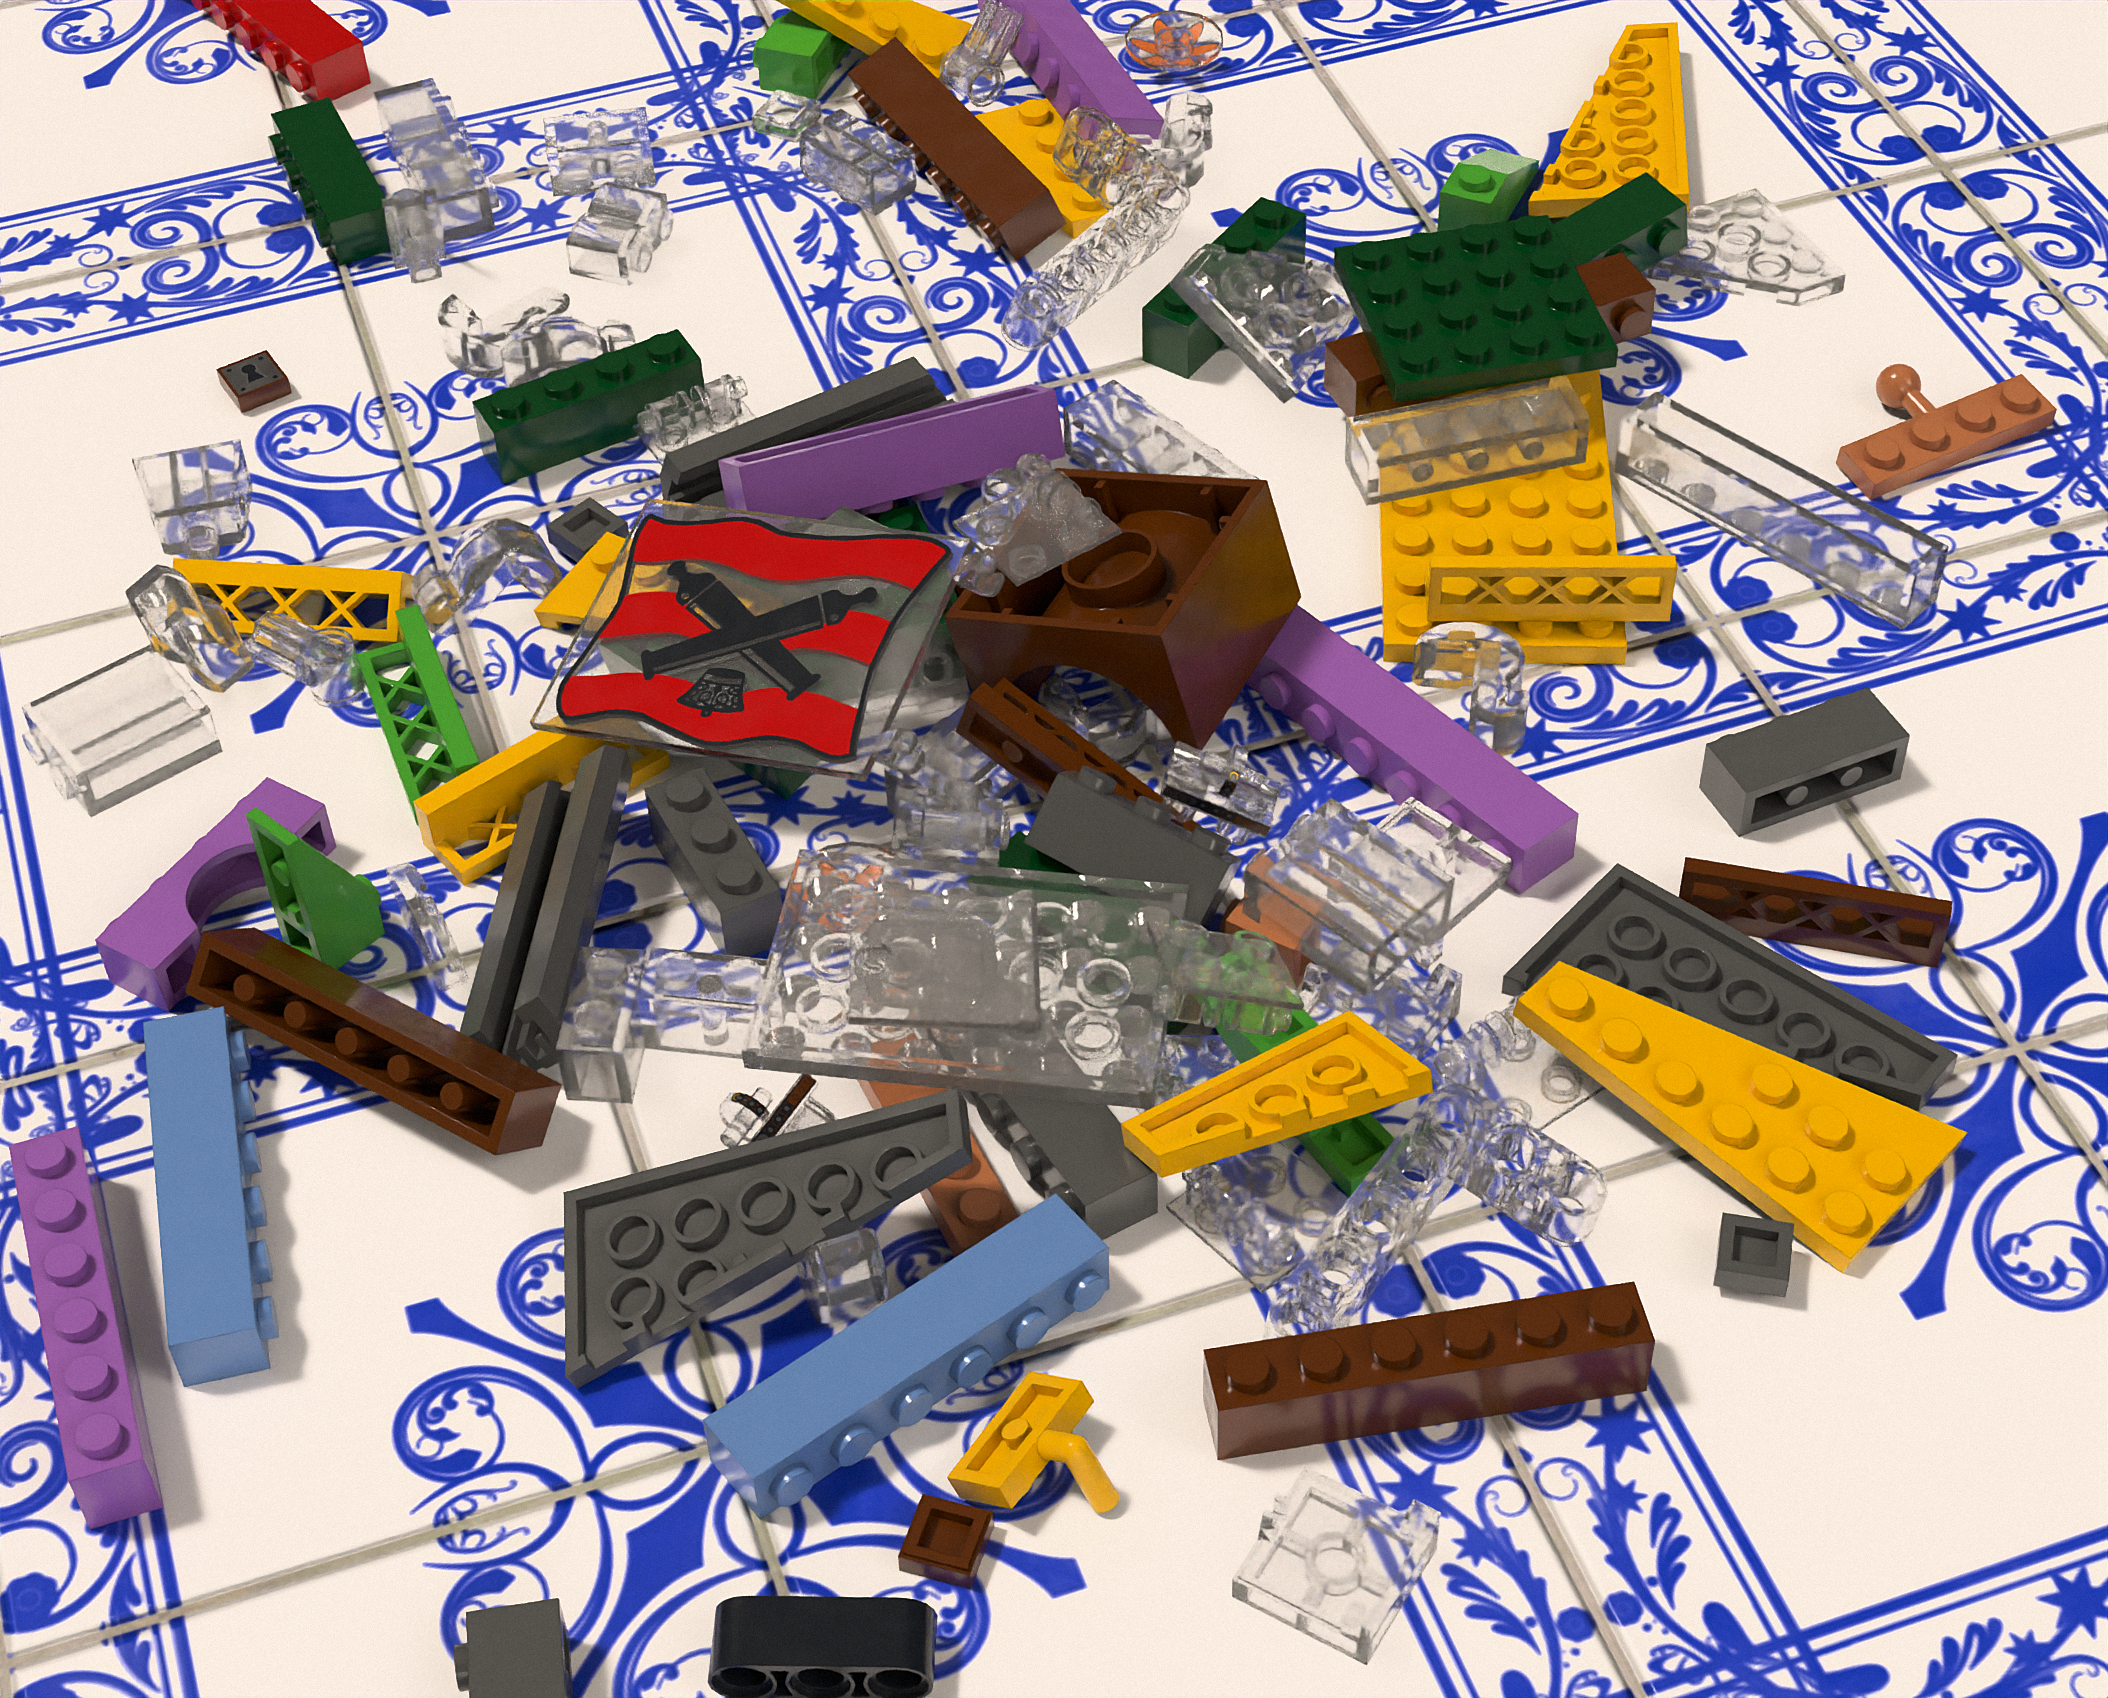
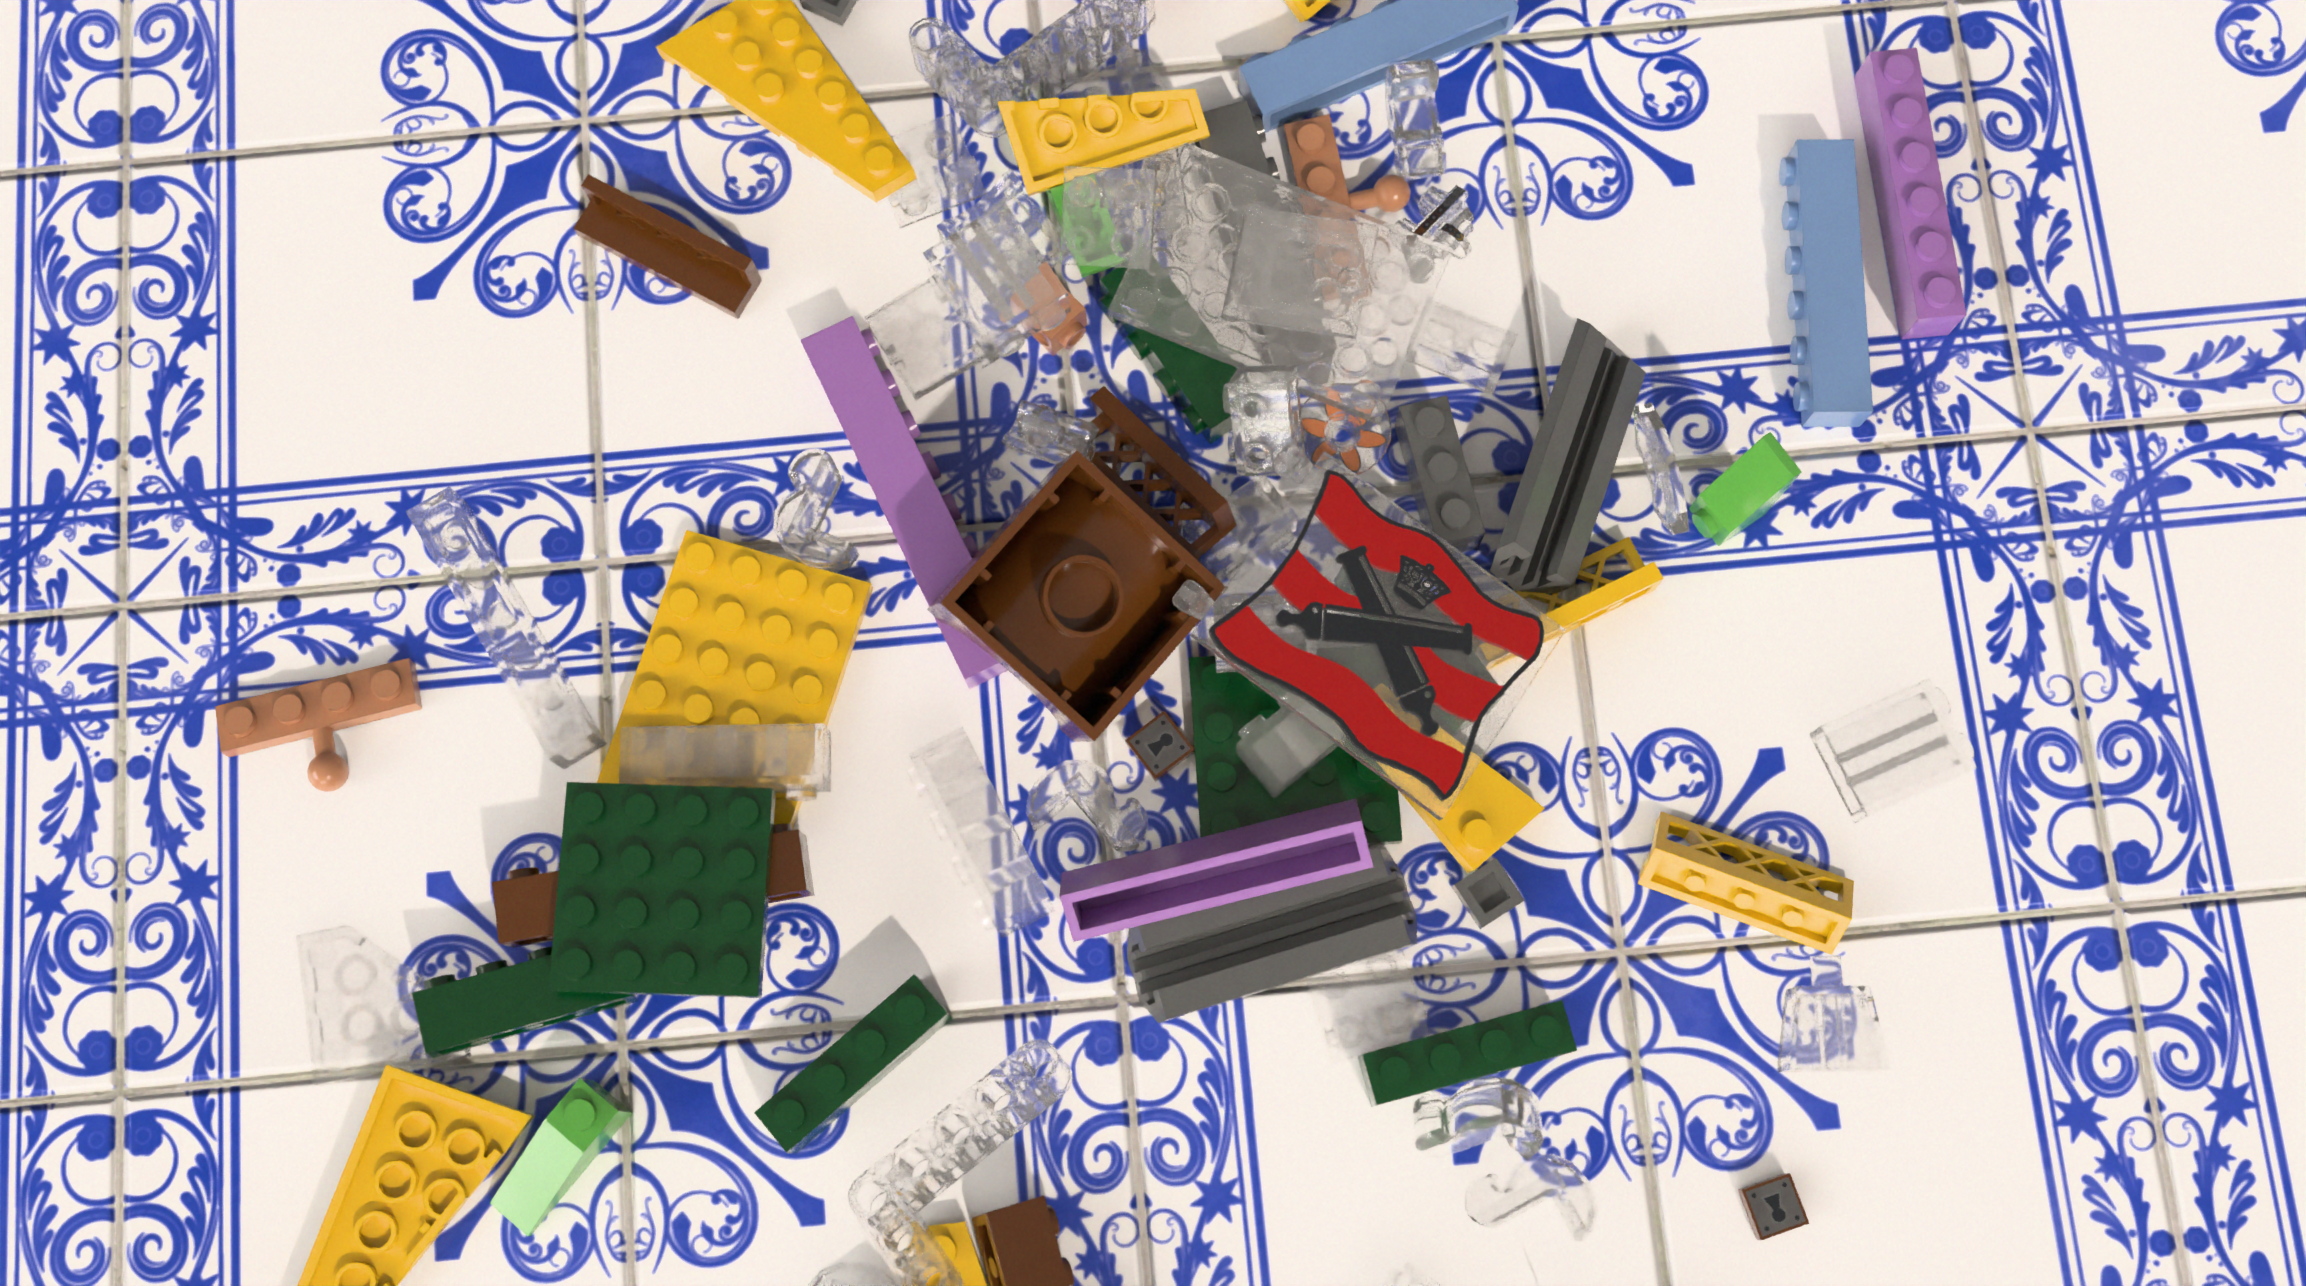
camera: 165 degrees left, 30 degrees up
(159, 935) = (1854, 514): medium lavender arch -> none
(189, 628) = (1839, 822): clear brick -> none
(317, 658) = (1741, 801): clear piece -> none
(374, 1040) = (1702, 363): reddish brown brick -> none
(432, 693) = (1635, 709): bright green fence -> none
(479, 570) = (1581, 842): clear animal -> none
(602, 1028) = (1538, 348): clear brick -> none
(701, 1231) = (1482, 141): dark grey wing -> none
(1038, 523) = (1133, 645): clear hinge -> none
(1115, 837) = (1134, 376): dark grey brick -> none
(1267, 310) = (828, 994): clear plate -> none
(1550, 587) = (727, 577): yellow fence -> none
(1706, 969) = (773, 204): dark grey wing -> none
(1803, 761) = (609, 376): dark grey brick -> none

